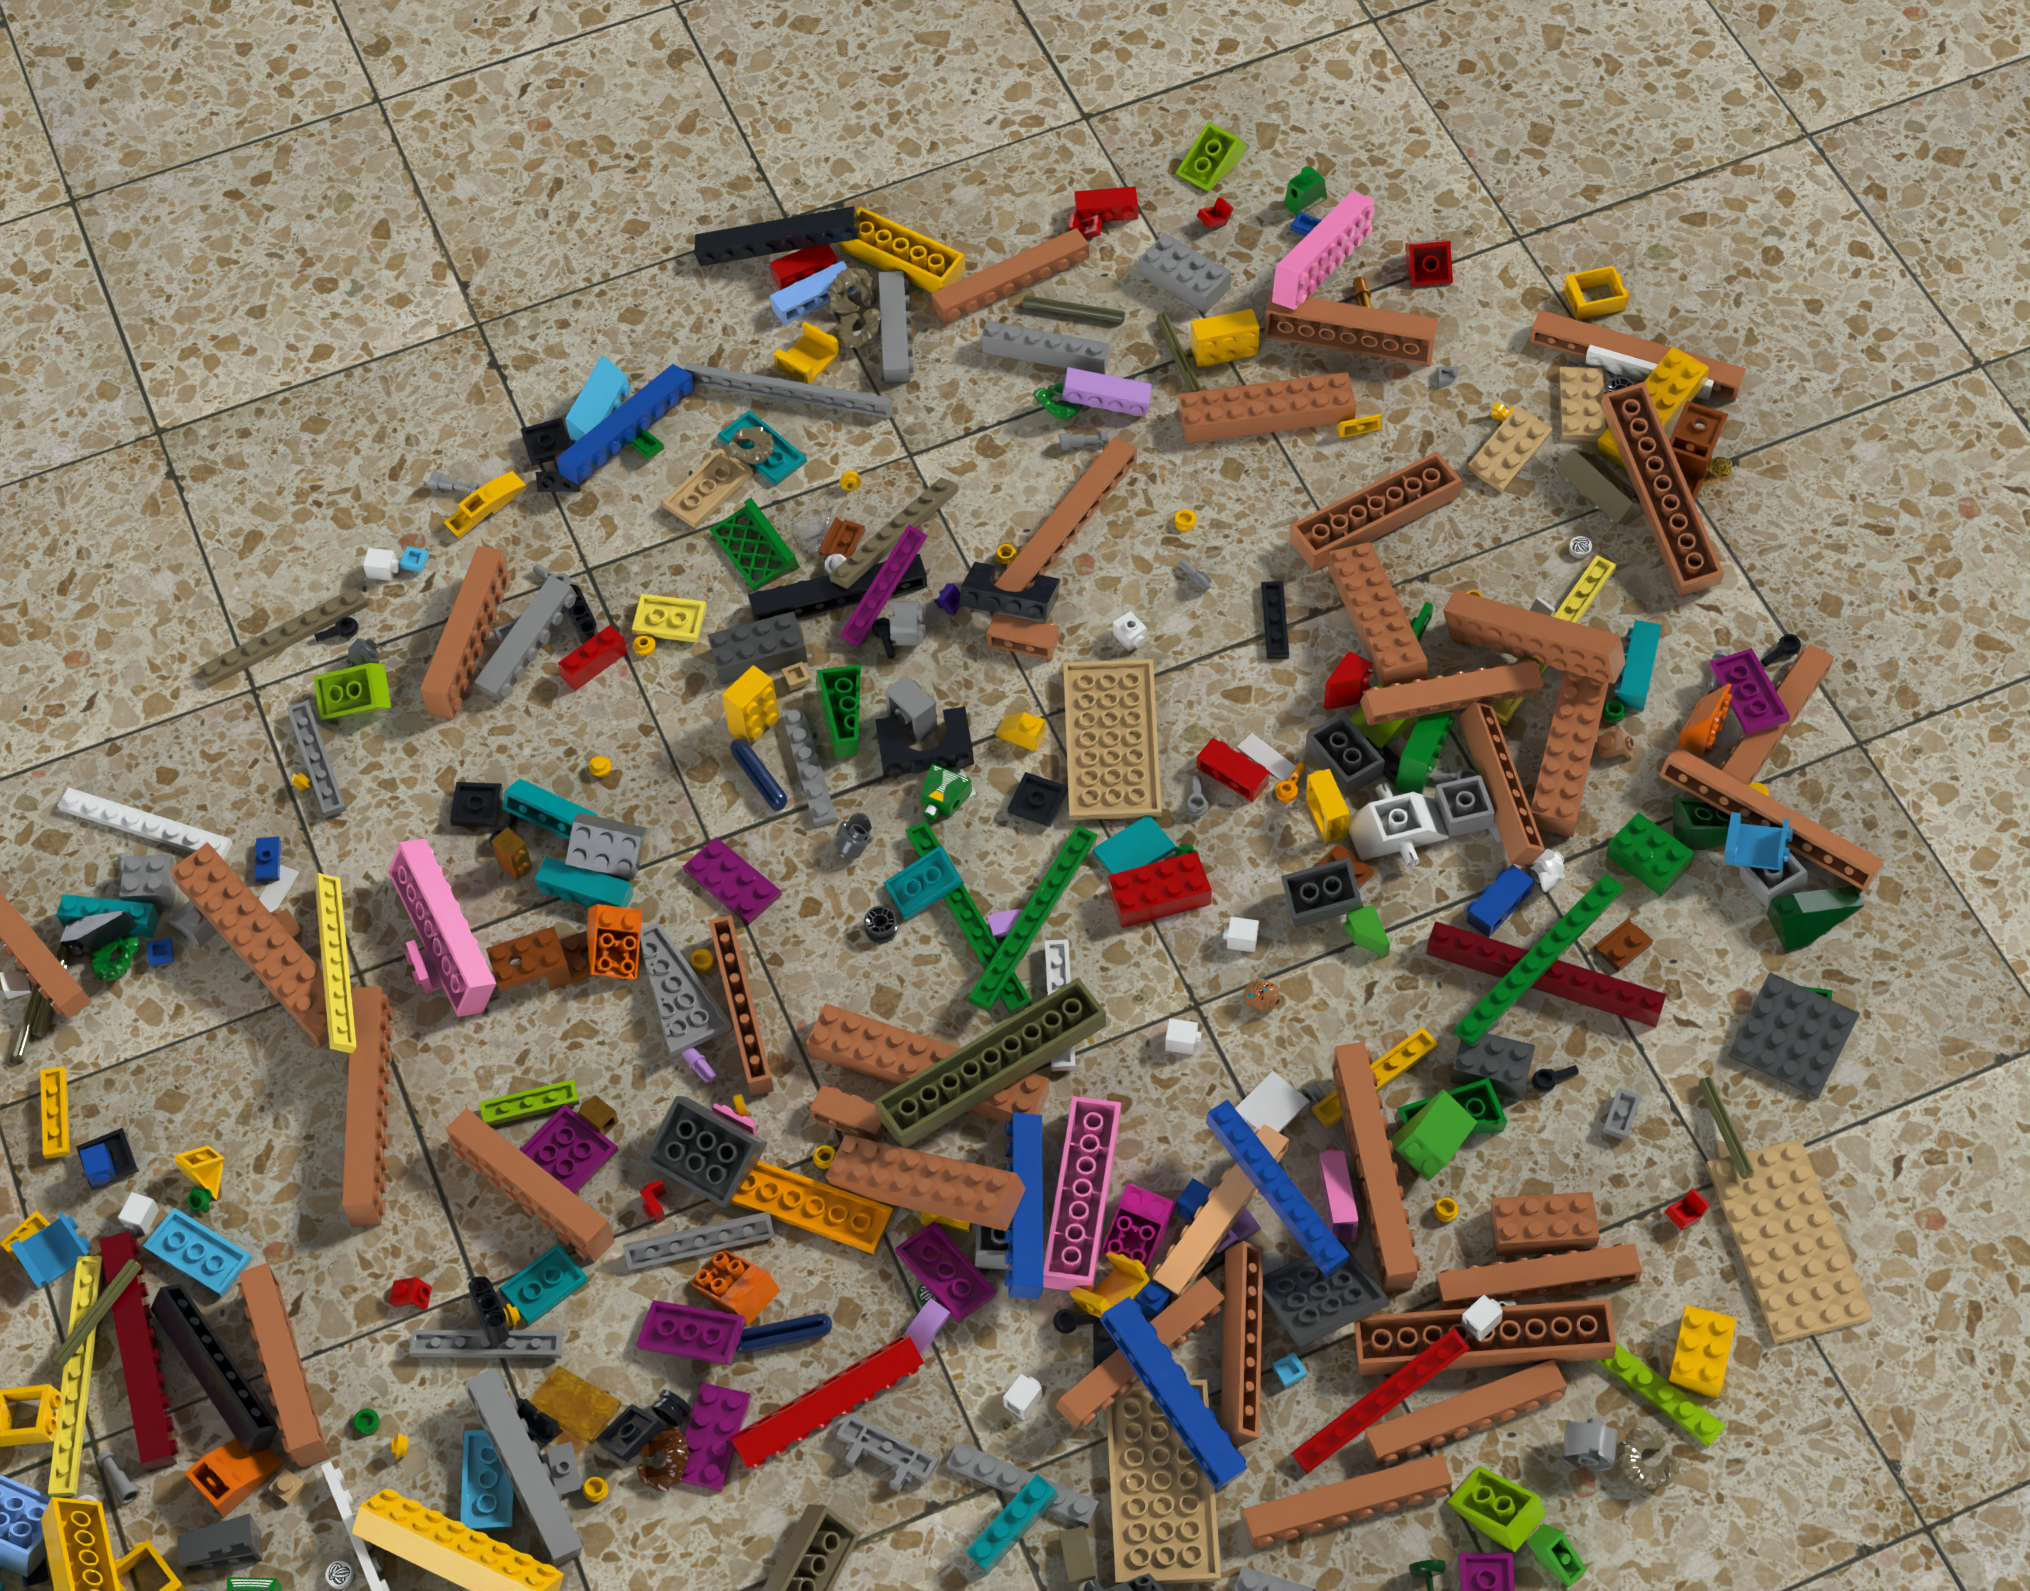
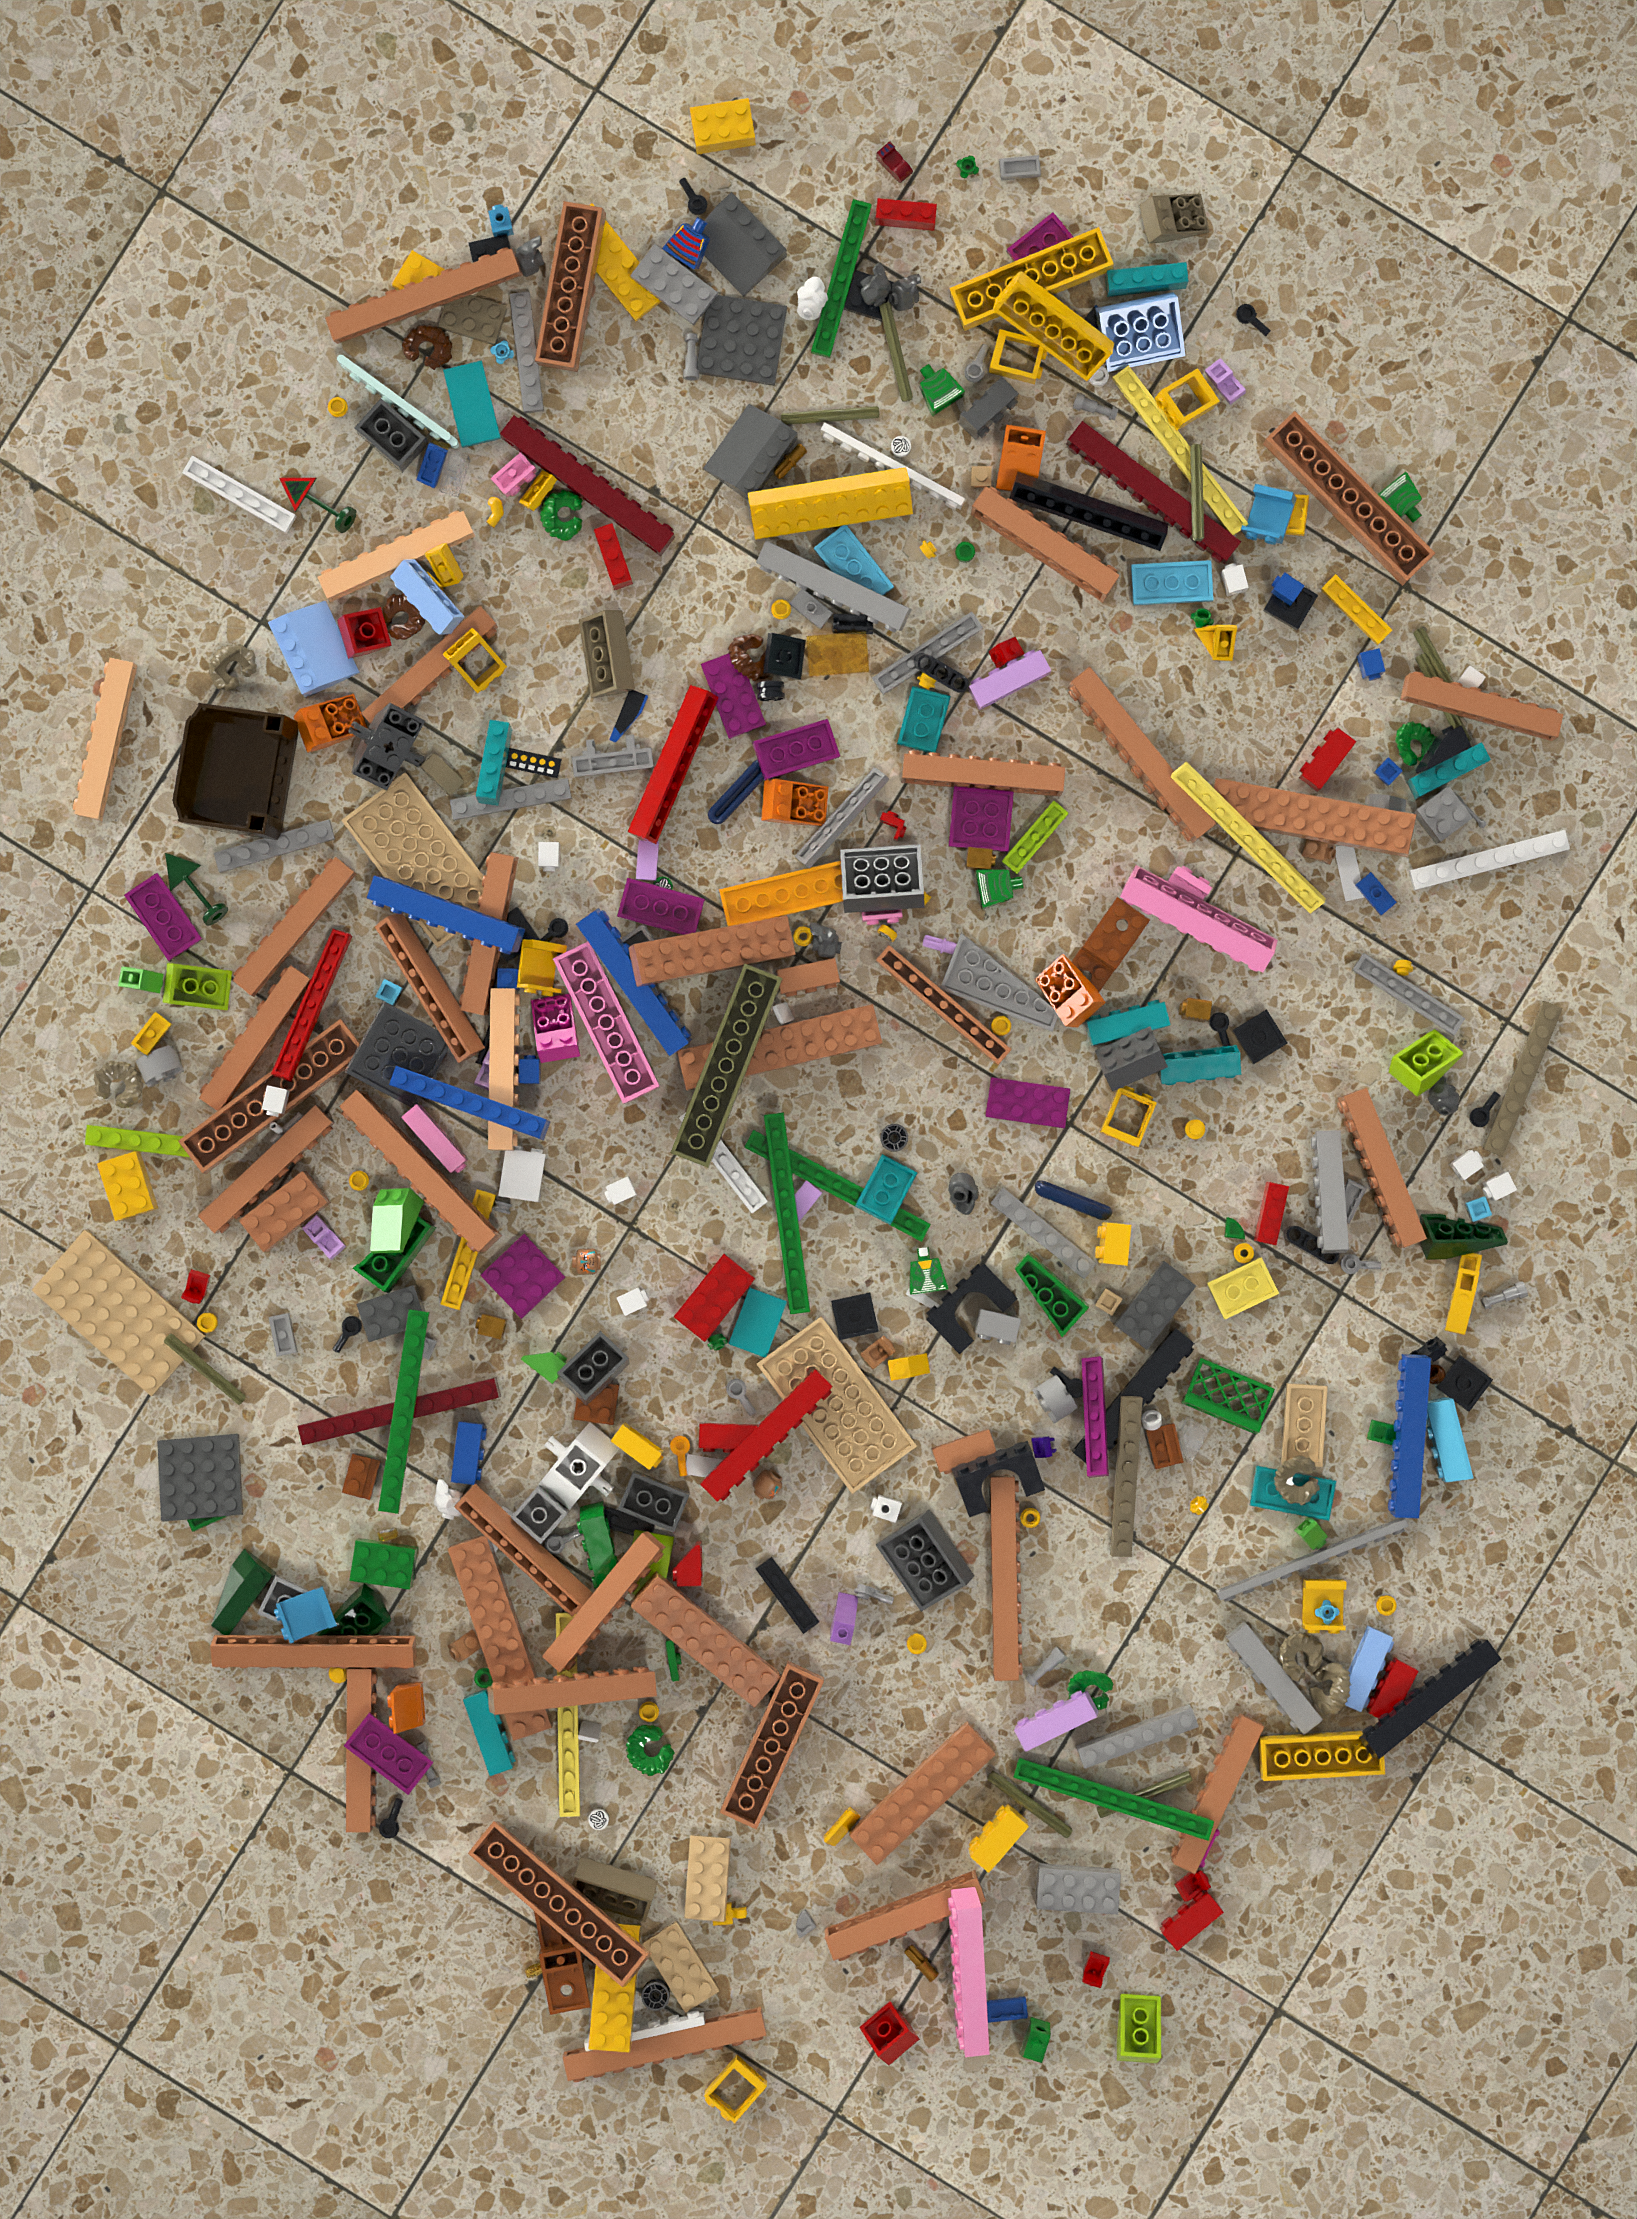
camera: 145 degrees right, 30 degrees up
(87, 1053) = (1371, 664): none -> blue brick
(203, 996) = (1326, 758): none -> red brick
(392, 596) = (1467, 1164): none -> white brick
(428, 1263) = (1009, 679): none -> lavender brick
(447, 546) = (1456, 1238): none -> dark green wedge
(604, 1079) = (996, 886): none -> green torso
(637, 669) = (1233, 1229): none -> green tile
(645, 793) = (1119, 1135): none -> yellow window
(755, 326) = (1386, 1605): none -> yellow plate
(772, 407) = (1311, 1533): none -> bright green slope
(807, 1134) = (825, 941): none -> dark grey head
(808, 346) = (1327, 1618): none -> medium azure plate
(834, 1491) = (630, 711): none -> black sticker
(968, 1504) = (533, 763): none -> black sticker
(1039, 757) = (878, 1352): none -> medium nougat bracket
(1103, 314) = (1114, 1799): none -> green plate
(1126, 572) = (925, 1560): none -> dark grey slope
(1196, 740) = (766, 1435): none -> red brick
(1226, 711) = (767, 1484): none -> medium nougat head
(1237, 556) = (844, 1618): none -> medium lavender slope
(1334, 1020) = (522, 1276): none -> magenta plate
(1399, 994) = (491, 1326): none -> pearl gold brick
(1503, 558) = (636, 1753): none -> green piece
(1518, 1175) = (324, 1237): none -> lavender slope
(1579, 1491) = (151, 1033): none -> yellow plate
(1629, 878) = (387, 1534): none -> clear yellow tile
(1696, 1174) = (207, 1322): none -> yellow tile

